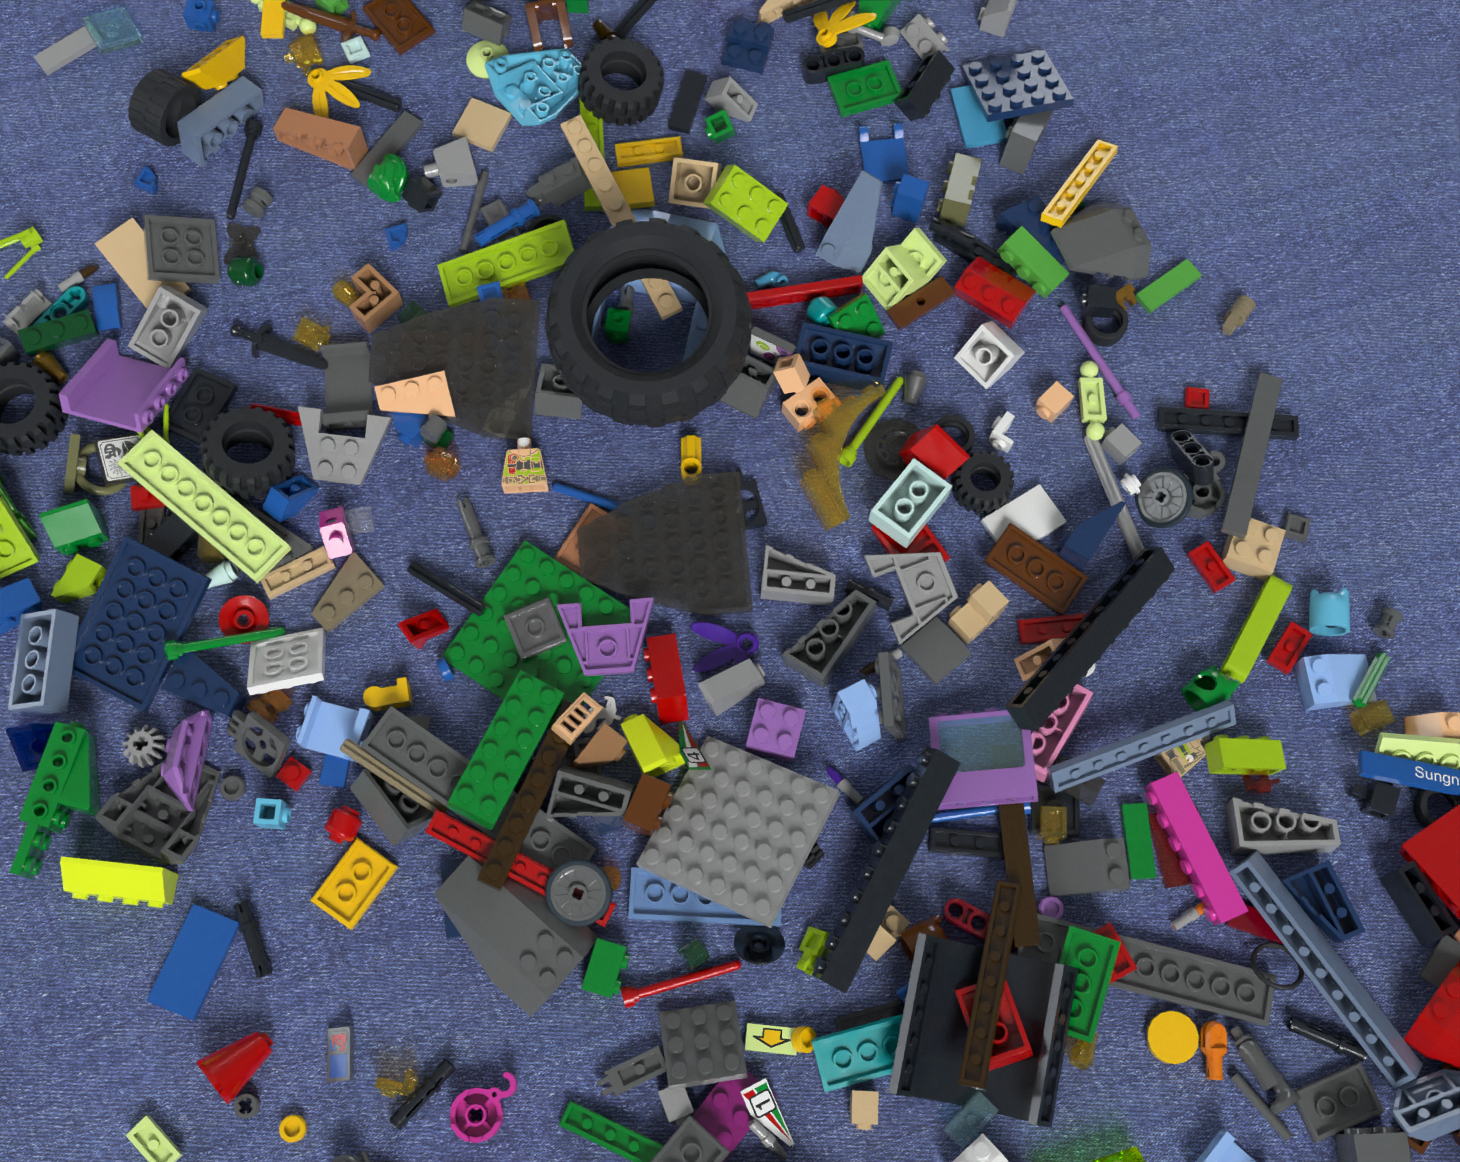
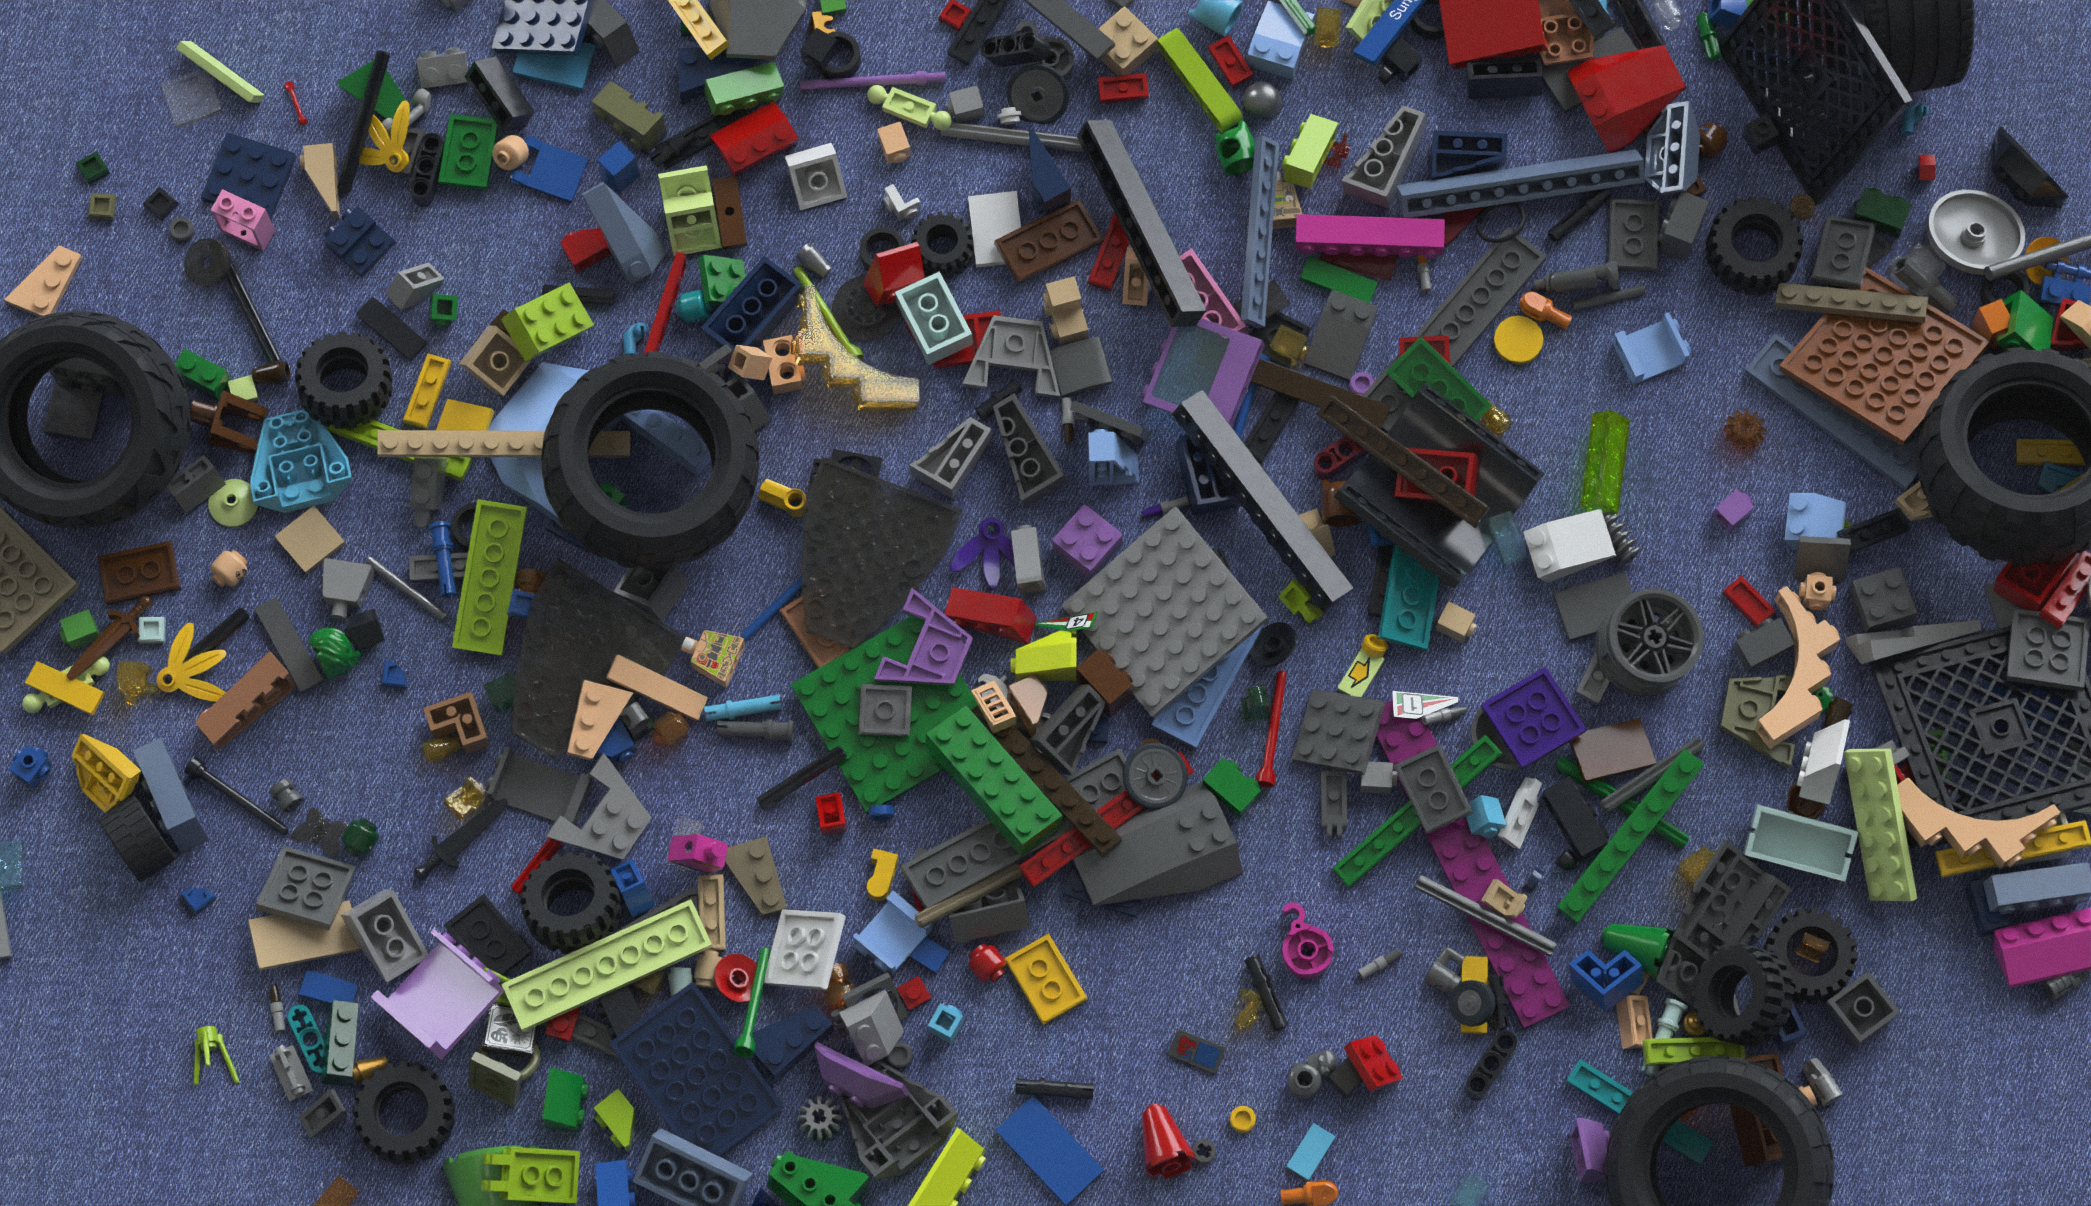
camera: 60 degrees left, 0 degrees up
(238, 751) = (873, 1027): none -> light grey slope
(243, 587) = (705, 969): none -> tan brick
(428, 77) = (228, 568): none -> light nougat head
(471, 434) = (657, 687): none -> light nougat tile
(484, 505) = (742, 708): none -> medium azure pin
(582, 23) = (244, 388): none -> yellowish green tile
(879, 116) = (510, 152): none -> light nougat head
(1269, 692) = (1262, 100): none -> flat silver hair

